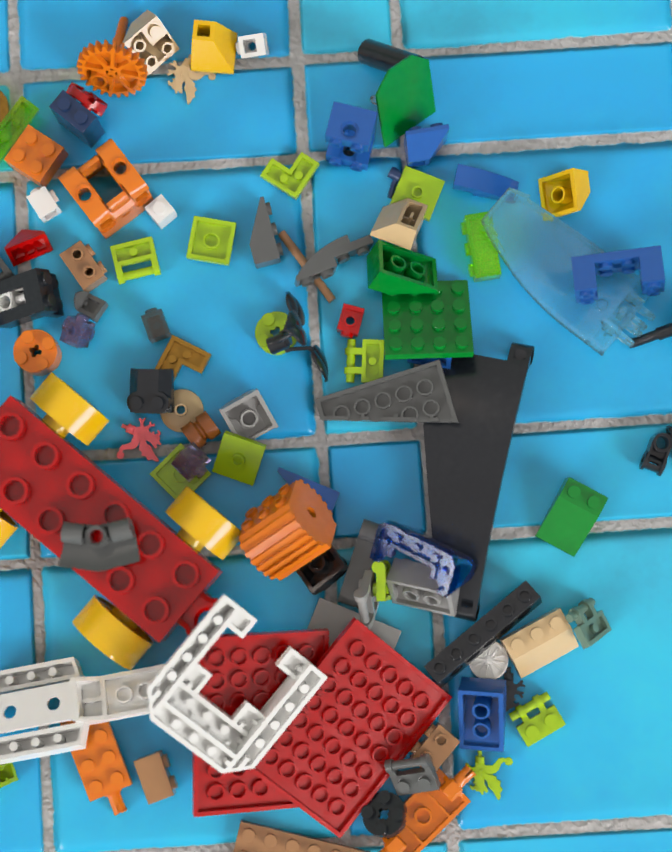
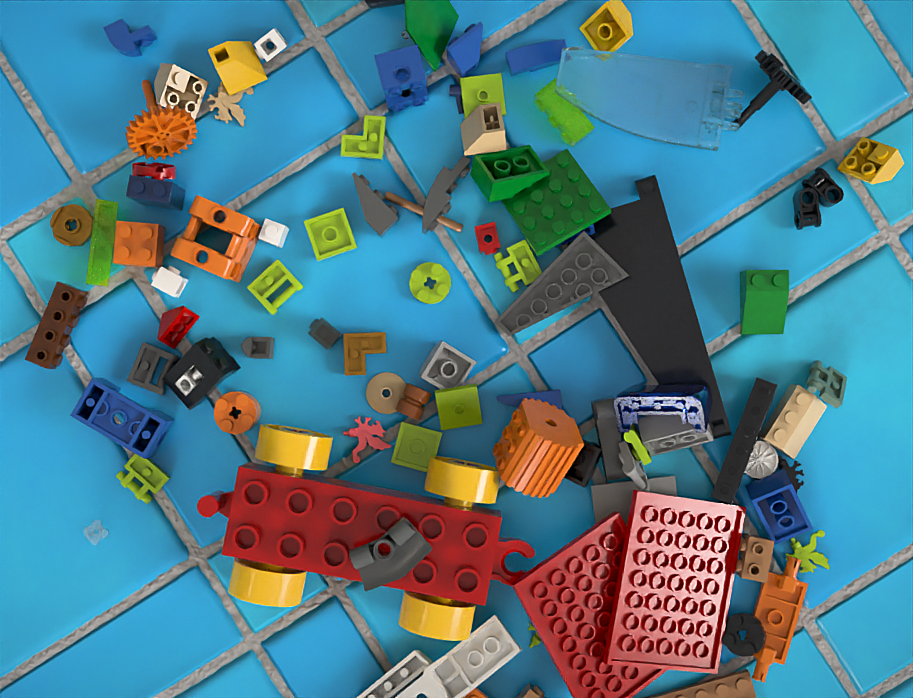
camera: 30 degrees left, 5 degrees up
(77, 331) = (261, 375): clear purple brick -> none
(83, 266) = (234, 317): medium nougat brick -> none
(151, 391) = (352, 391): black slope -> none
(191, 462) = (422, 434): brick -> none
(203, 727) = (563, 653): white slope -> none
(293, 327) = (449, 274): black plant -> none
(413, 780) = (750, 590): dark grey plate -> none
(539, 725) = (830, 488): lime plate -> none
(646, 260) = (718, 49): blue plate -> none

